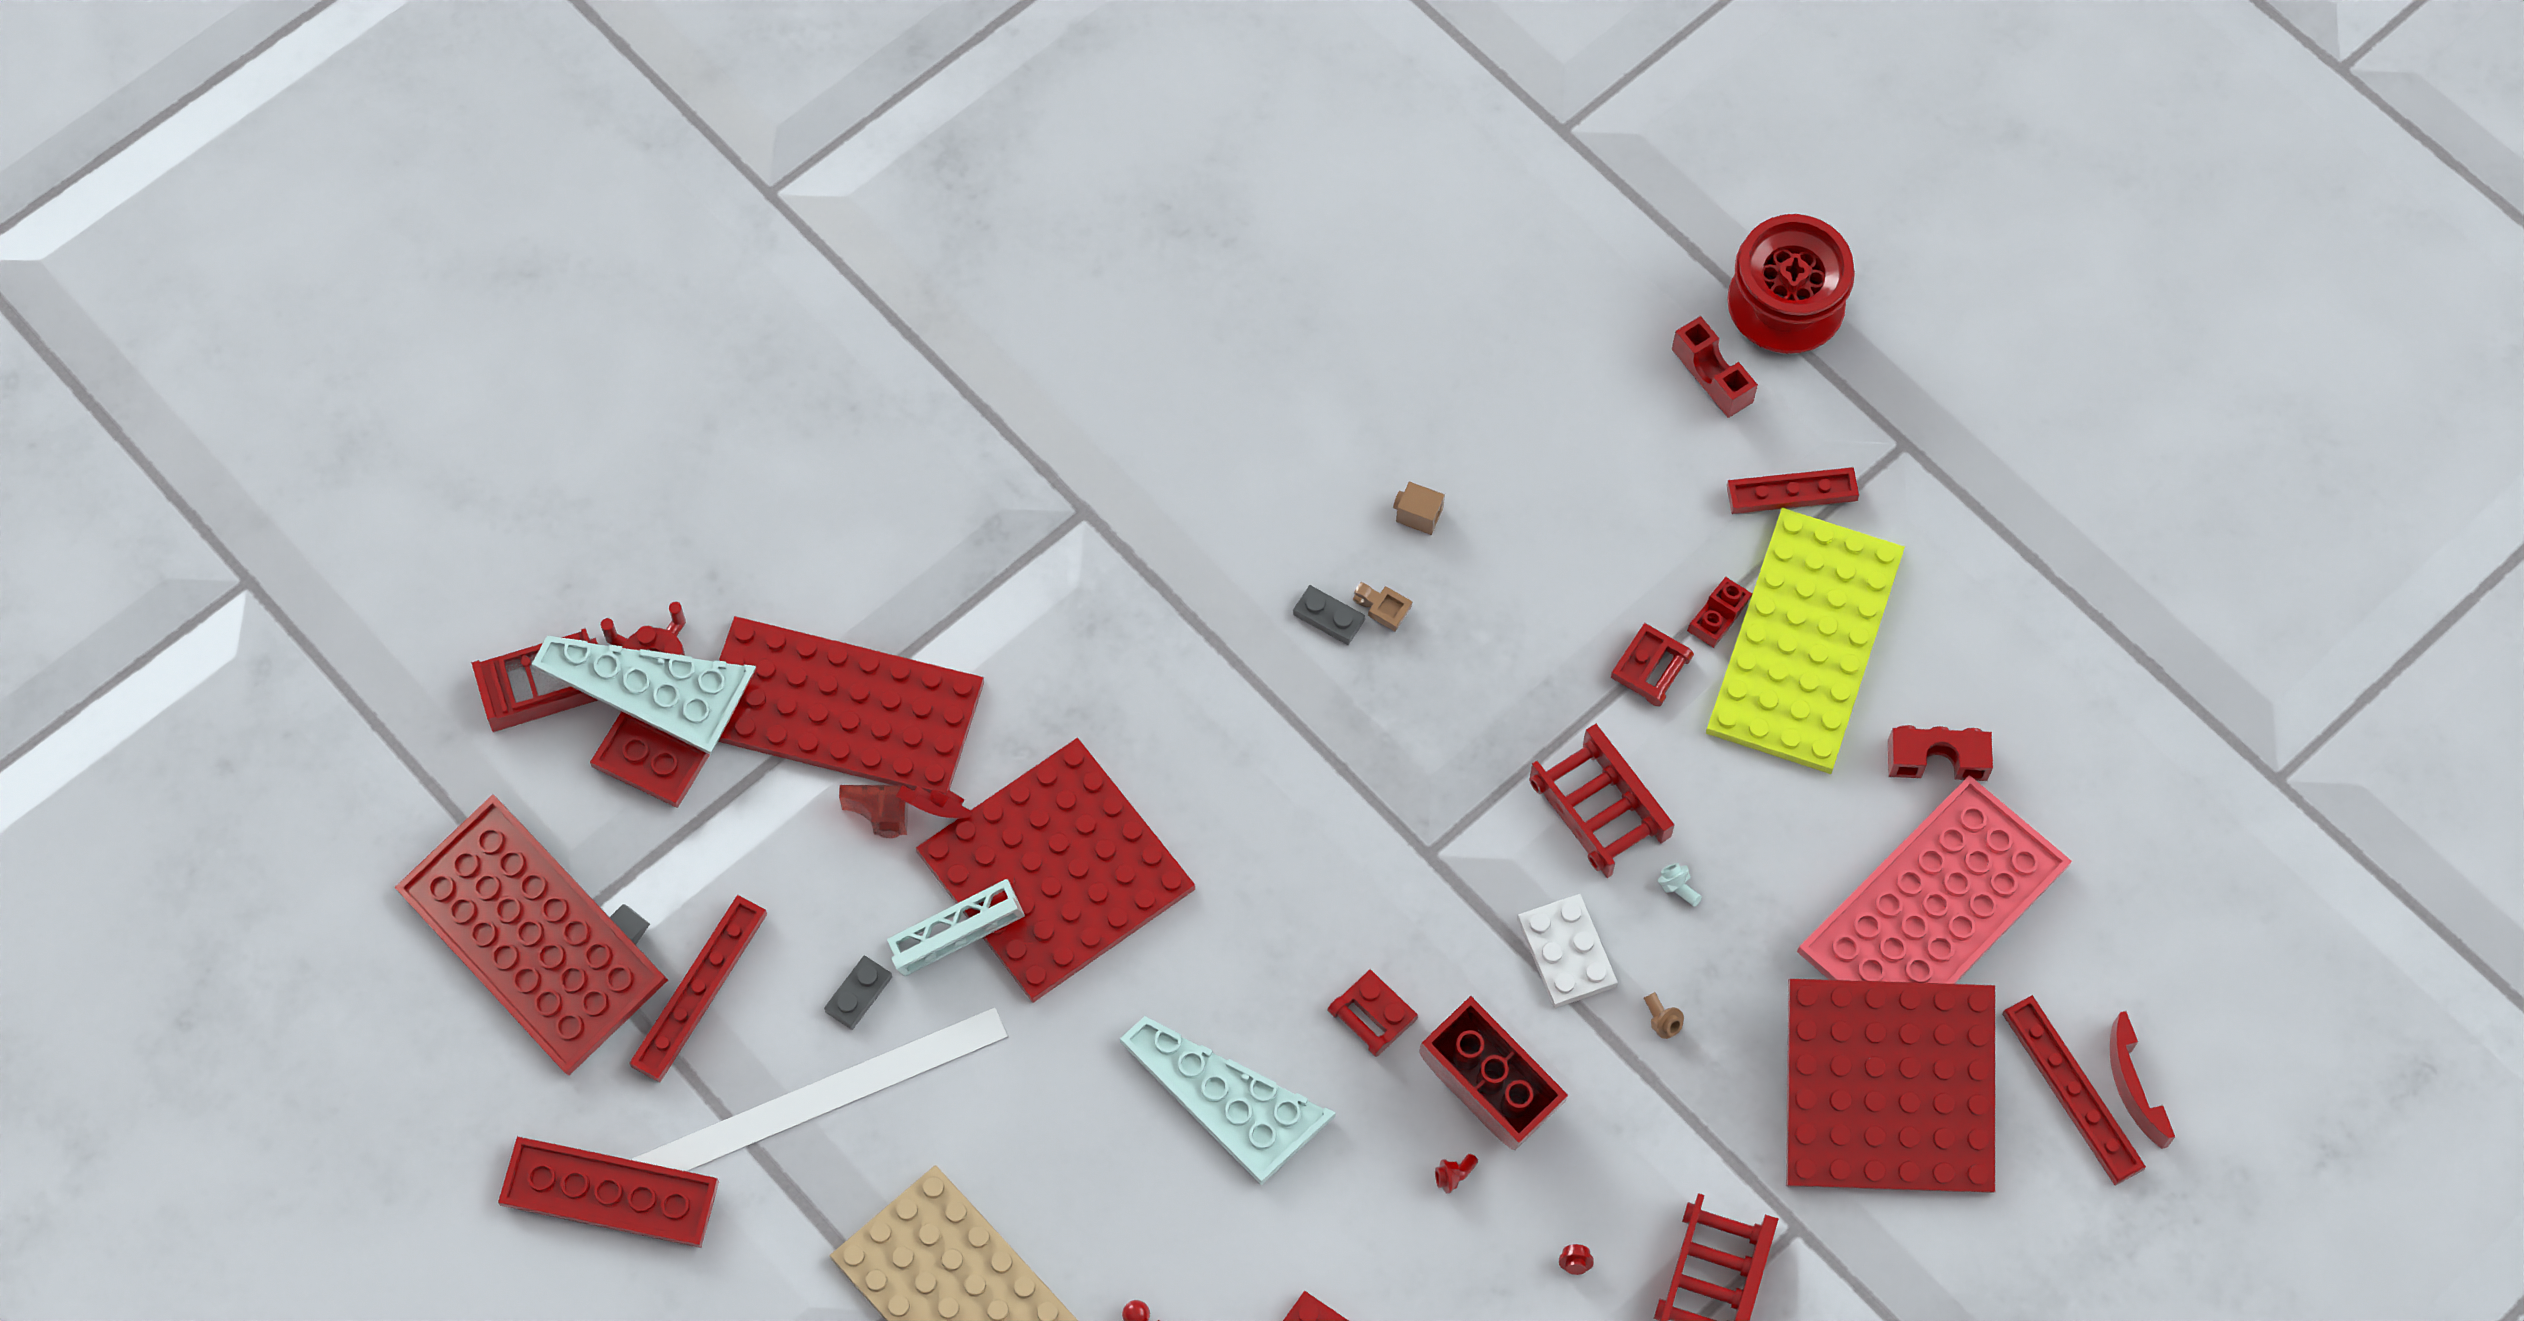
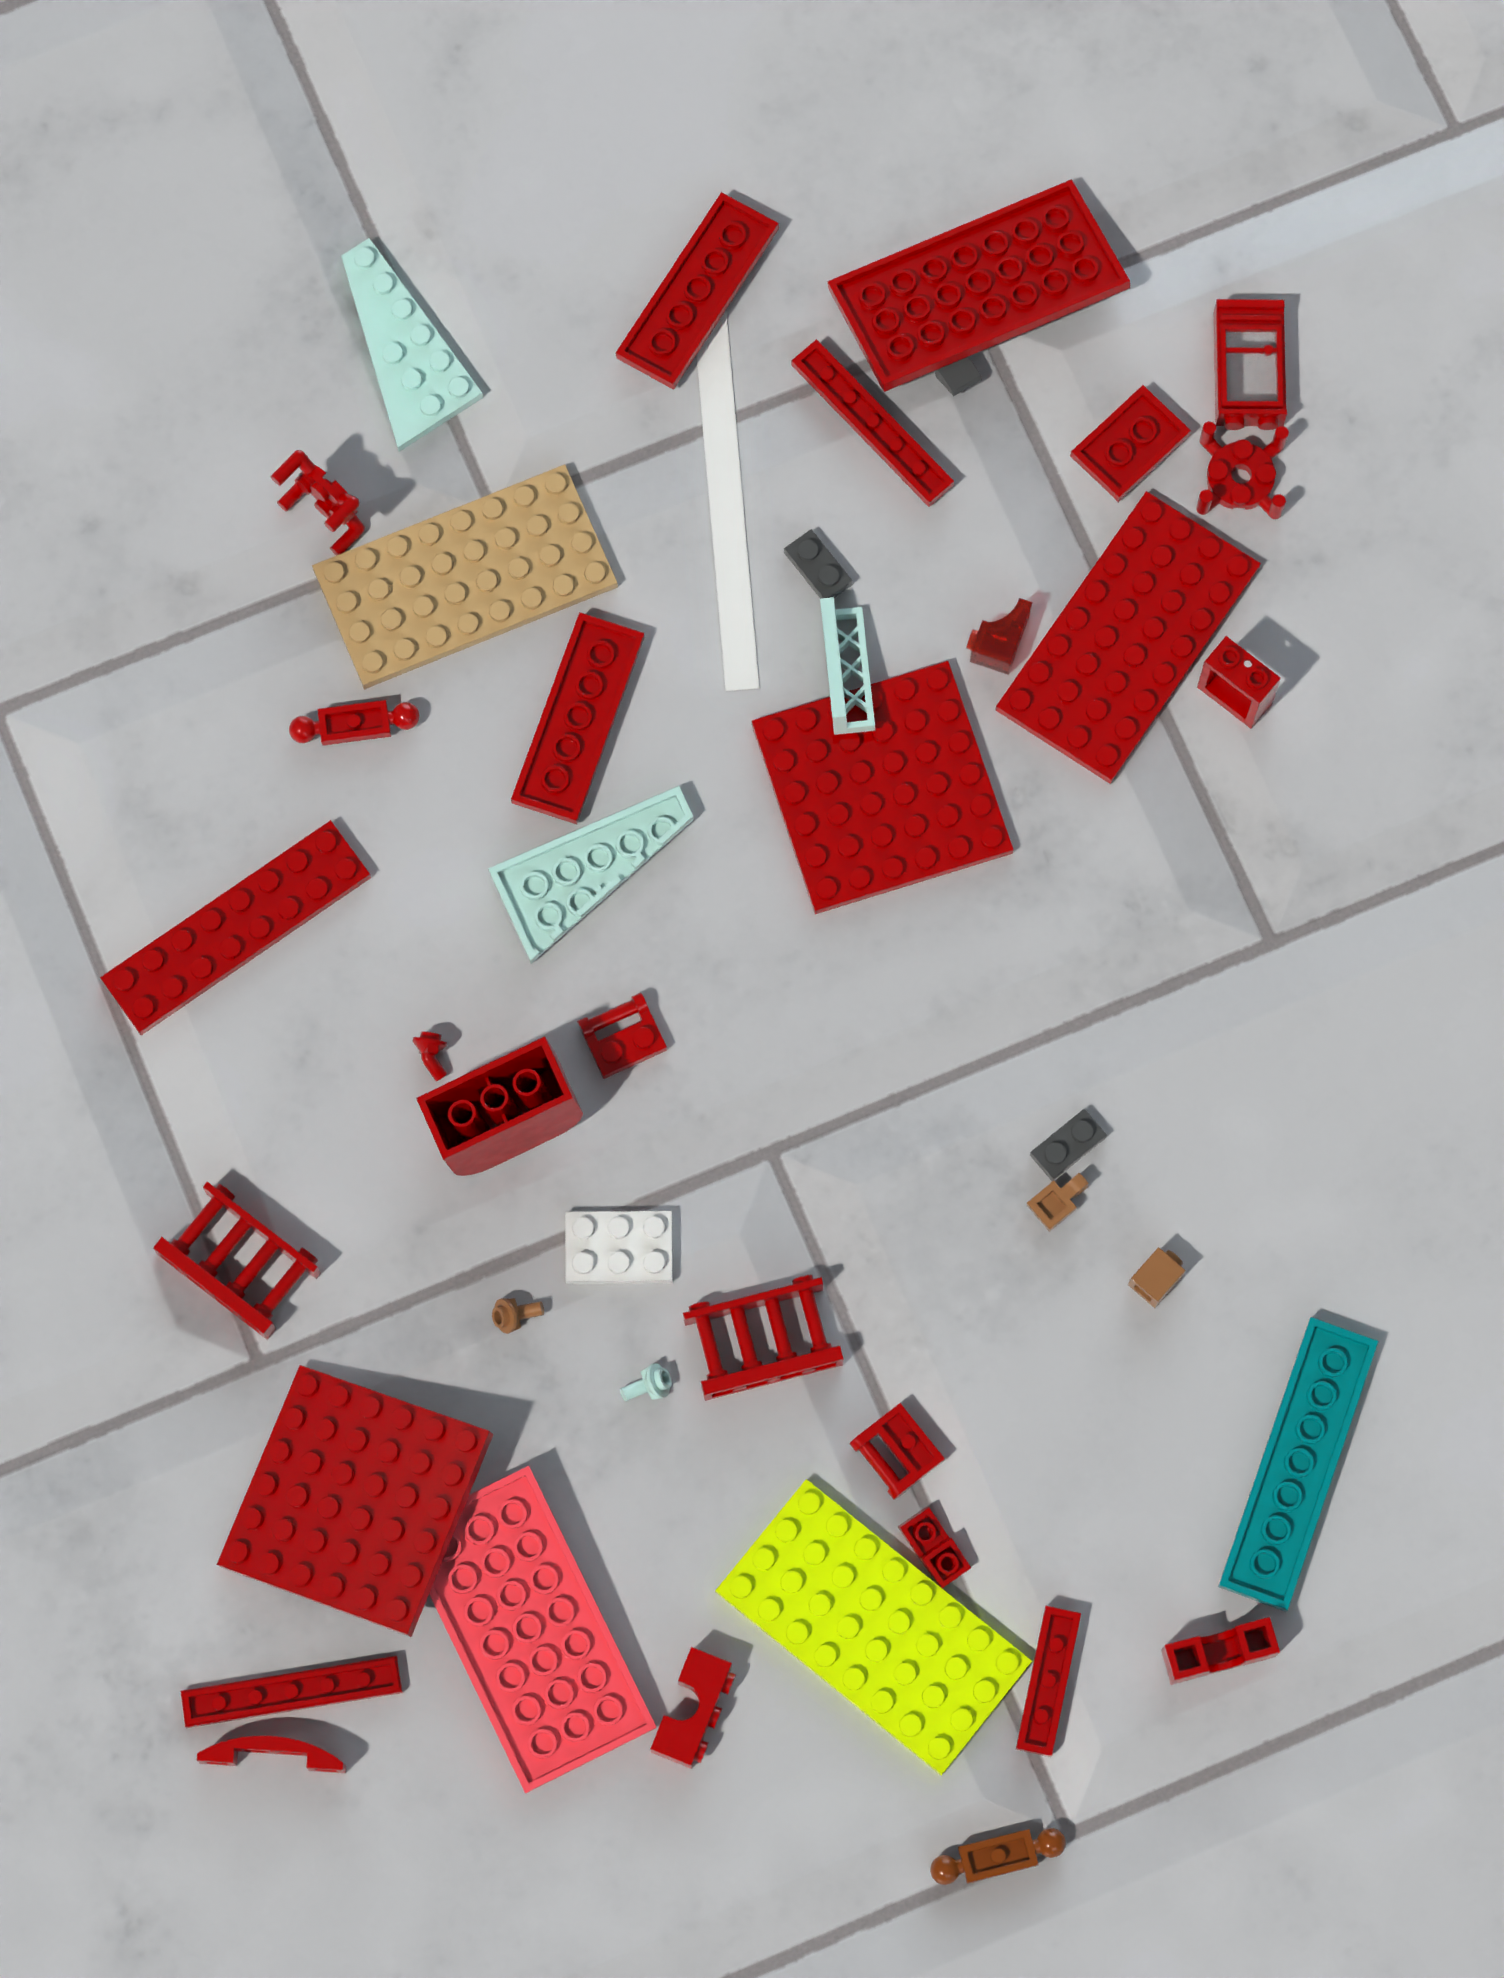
camera: 110 degrees right, 10 degrees up
(665, 690) = (1184, 467): light aqua wing -> none
(861, 595) = (1238, 688): none -> red window
(935, 802) = (978, 687): red slope -> none
(1083, 1154) = (577, 718): none -> red plate
(1532, 359) = (1298, 1464): none -> teal plate
(1576, 1259) = (303, 1133): red plate -> none
(1768, 261) = (1246, 1792): red wheel -> none
(1950, 485) = (998, 1856): none -> dark orange plate

